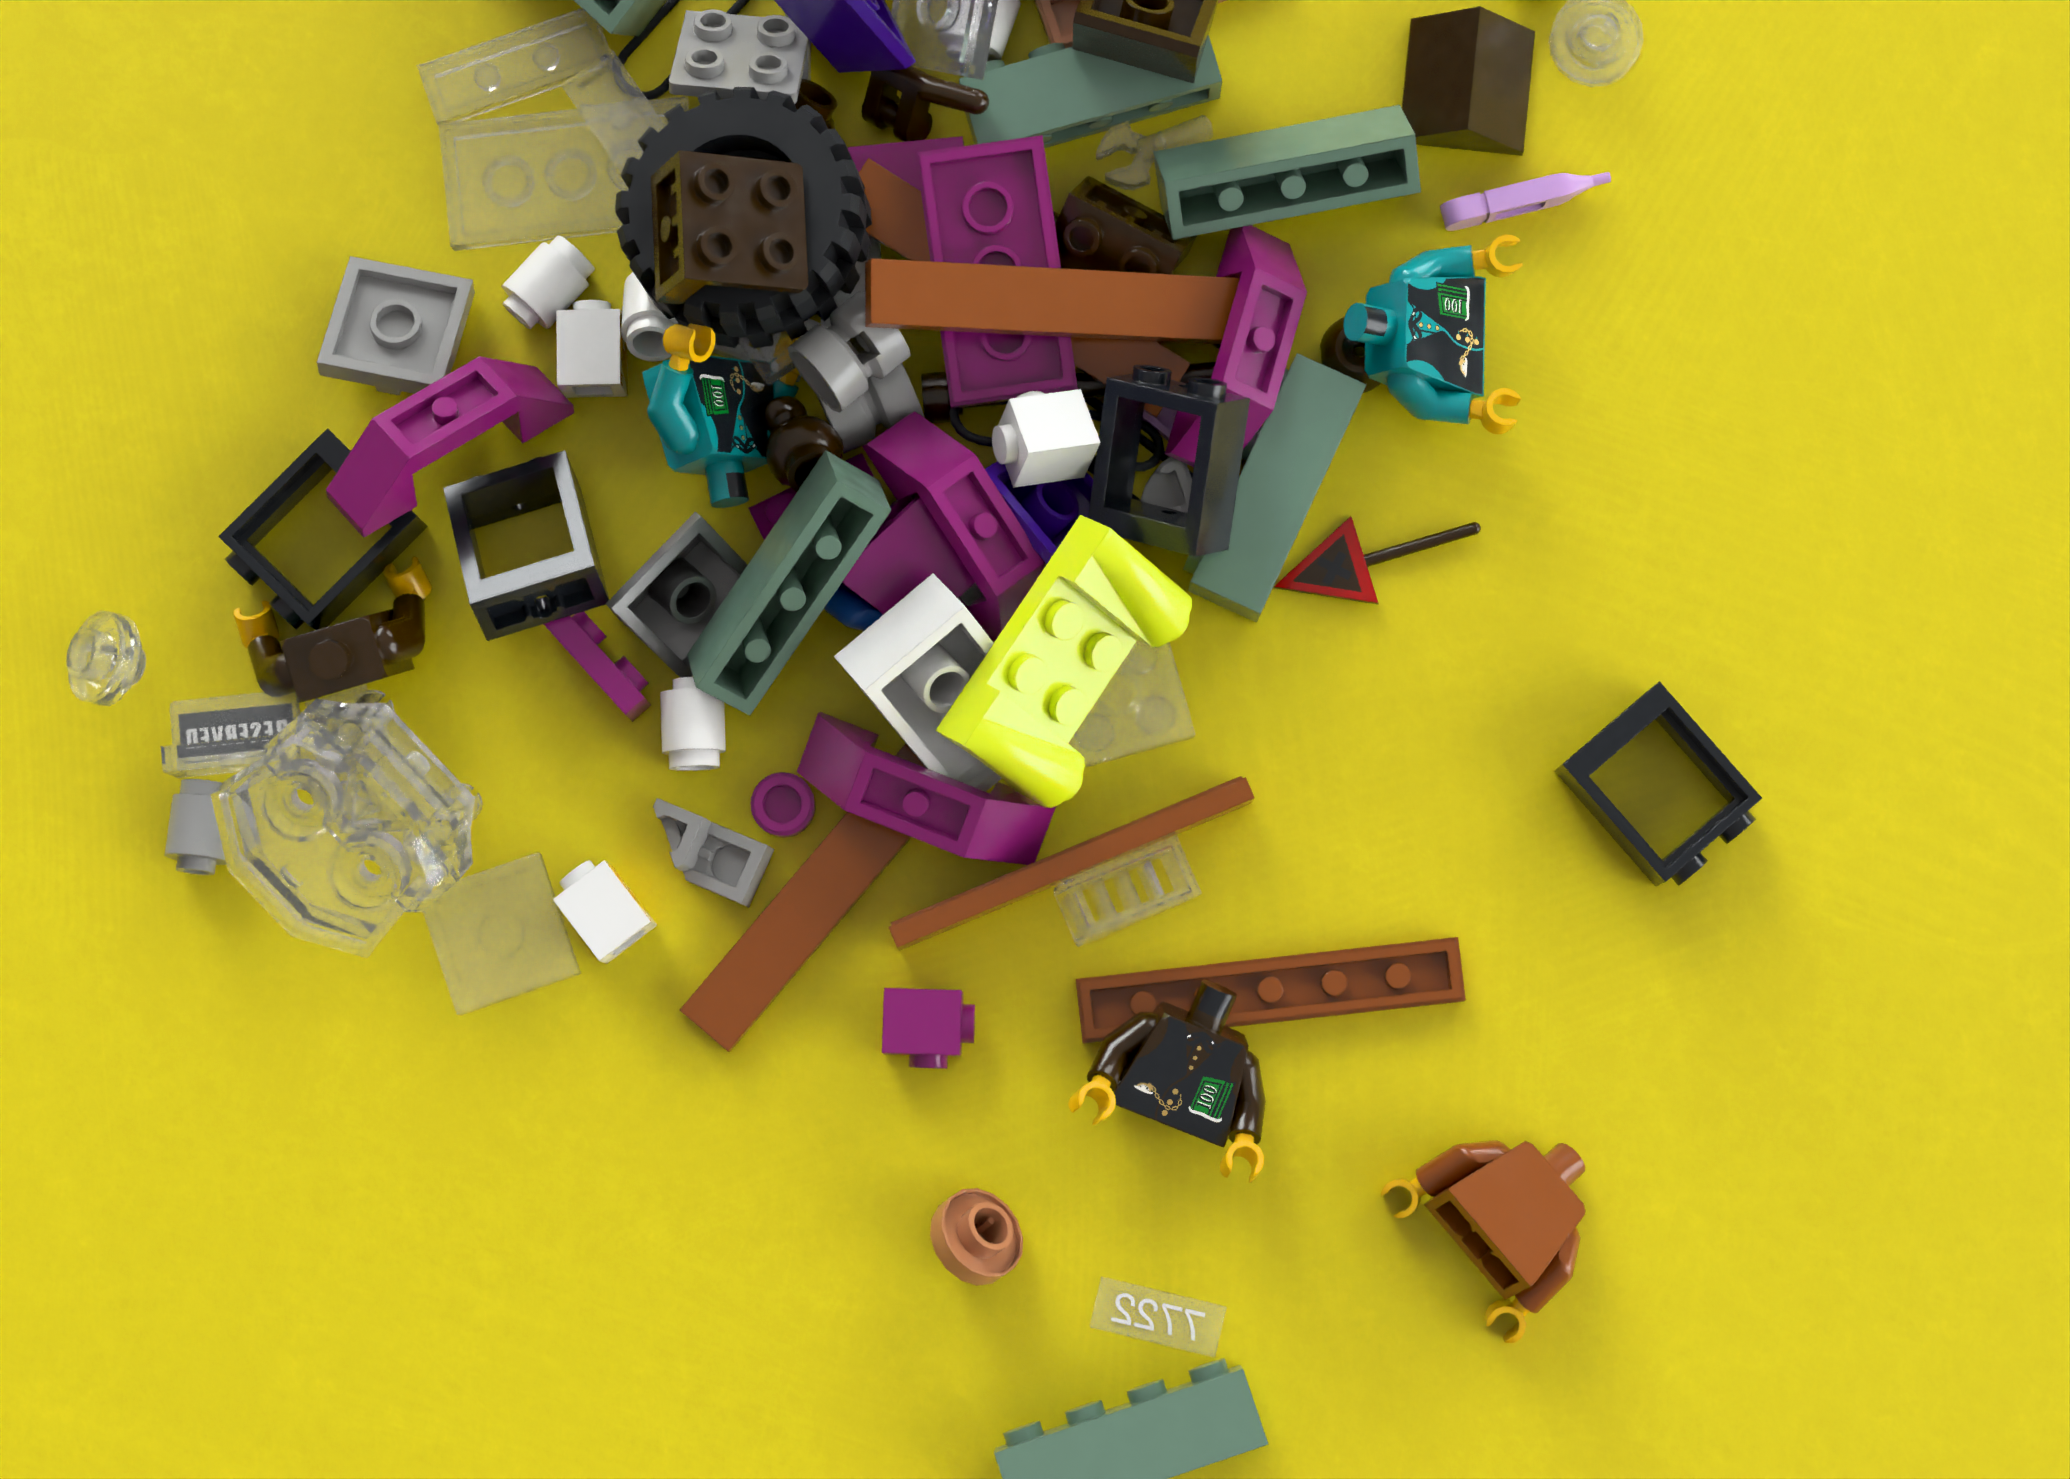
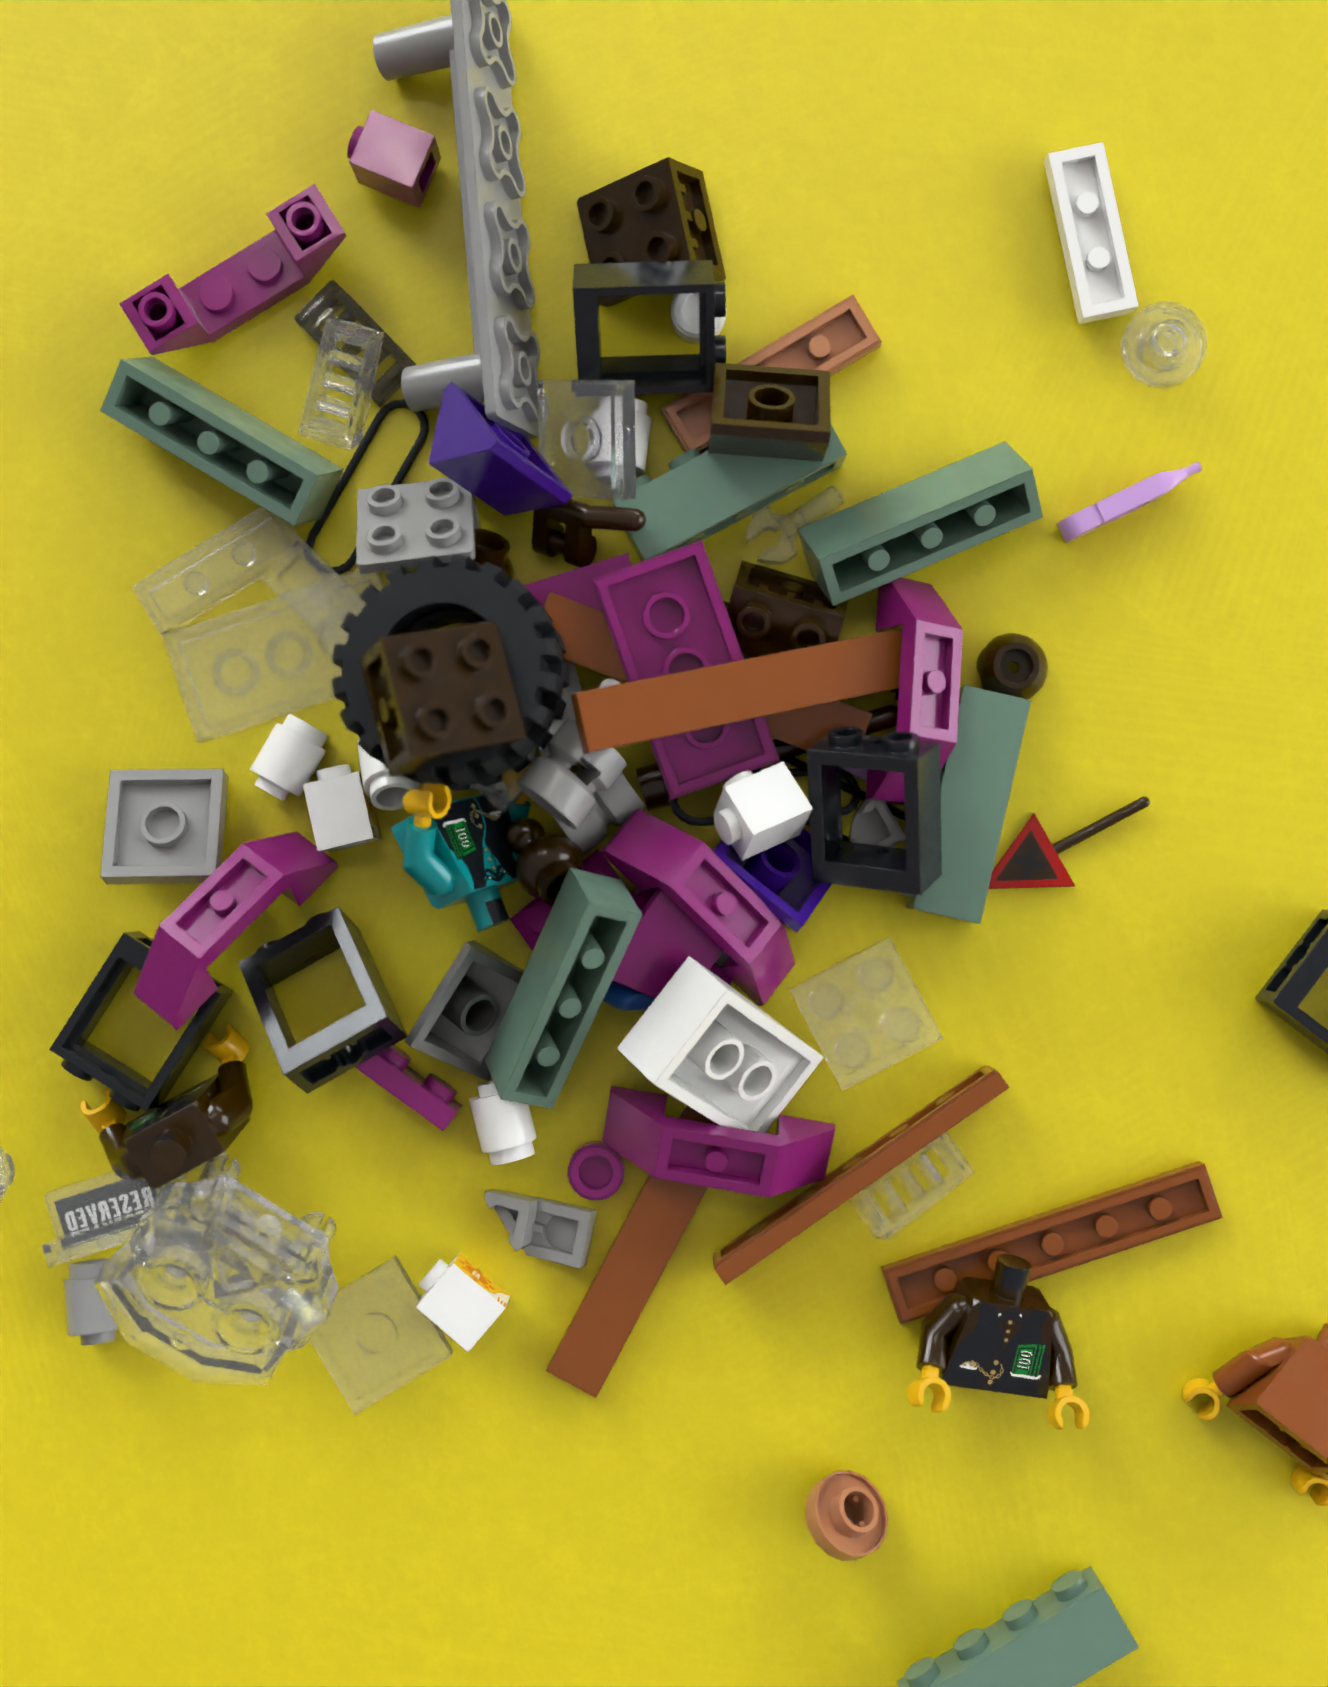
camera: 10 degrees left, 5 degrees up
(926, 1025) = (763, 1340): magenta brick -> none
(1060, 658) = (813, 1007): neon yellow piece -> none
(1158, 1316) = (1012, 1540): clear sticker -> none
(1430, 335) = (1077, 643): torso -> none
(1468, 81) = (1057, 405): dark brown slope -> none

